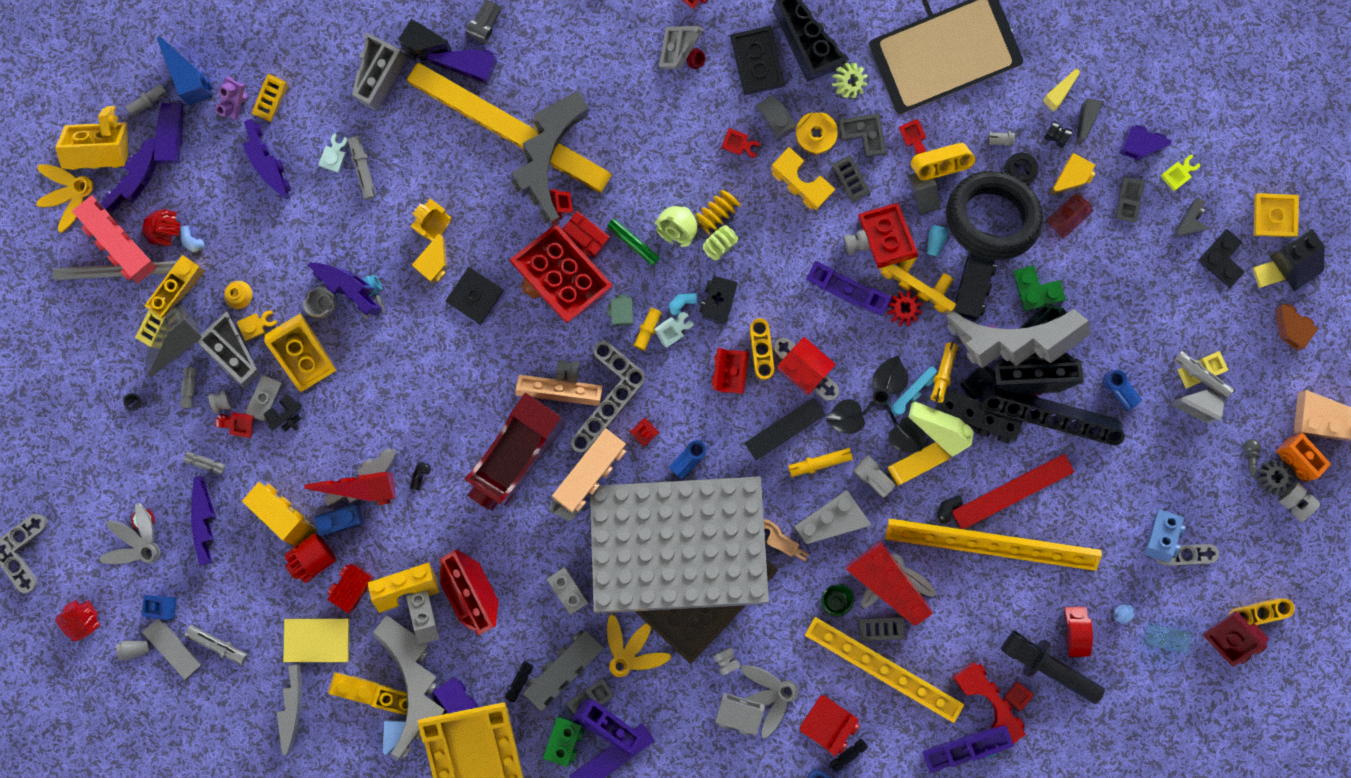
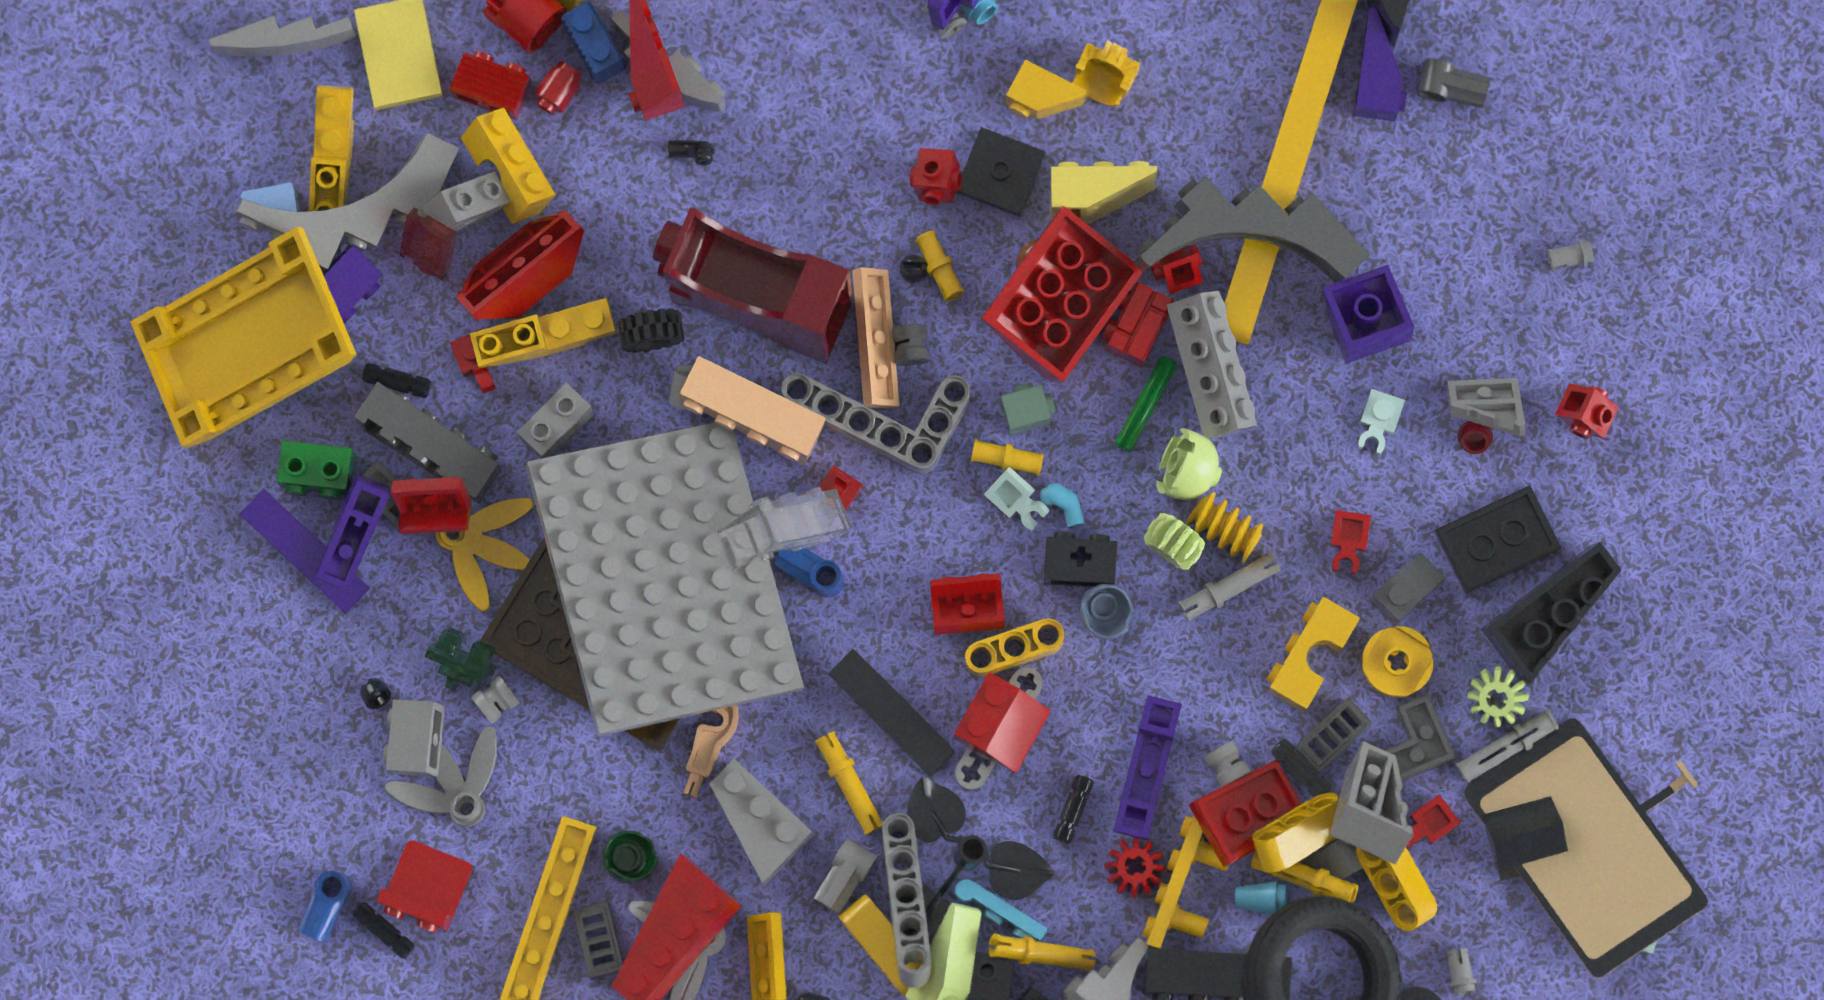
camera: 80 degrees right, 5 degrees down
(362, 547) = (557, 88): none -> red brick
(442, 645) = (428, 244): none -> clear red plate
(470, 333) = (936, 176): none -> red brick
(501, 243) = (1098, 188): none -> light yellow slope
(512, 587) = (543, 335): none -> yellow slope
(515, 632) = (467, 362): none -> red plate
(523, 343) = (939, 266): none -> yellow pin
(525, 360) = (913, 275): none -> black hinge
(525, 522) = (651, 330): none -> black tyre
(603, 675) = (432, 505): none -> red bracket
(610, 101) = (1367, 314): none -> dark purple slope
(621, 197) = (1212, 364): none -> light grey brick
(664, 467) = (784, 524): none -> clear wedge
(670, 109) = (1381, 416): none -> light aqua plate
(700, 677) = (458, 664): none -> clear green hips
(706, 732) = (379, 699): none -> black hinge
(752, 291) = (1106, 610): none -> sand blue hair
(754, 225) = (1215, 594): none -> light grey pin
(862, 337) = (1073, 809): none -> black axle
(866, 201) = (1300, 768): none -> black axle
(875, 74) = (1543, 725): none -> light grey pin
(901, 164) = (1371, 805): none -> light grey wedge
(906, 209) = (1296, 833): none -> yellow beam
(908, 447) = (904, 915): none -> light grey beam
(931, 84) = (1524, 834): none -> black slope
(933, 209) = (1317, 881): none -> yellow pin

